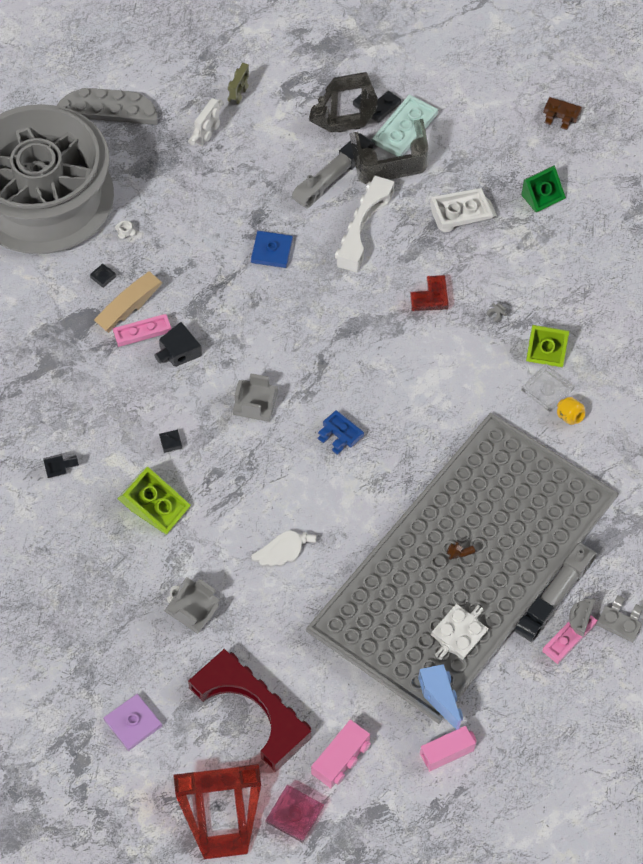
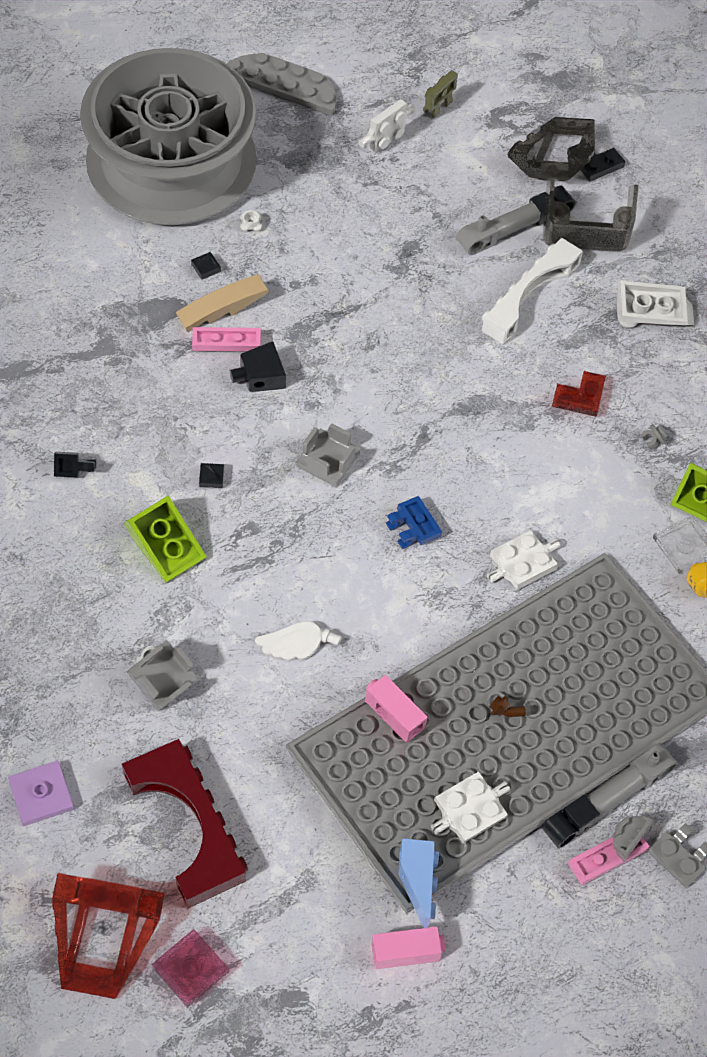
camera: 15 degrees right, 0 degrees up
(271, 249) = (411, 289): blue plate -> none
(341, 754) = (273, 912): bright pink brick -> none
(378, 575) = (395, 708): none -> bright pink brick
(399, 129) = (611, 192): light aqua plate -> none
(431, 435) = (523, 560): none -> white plate

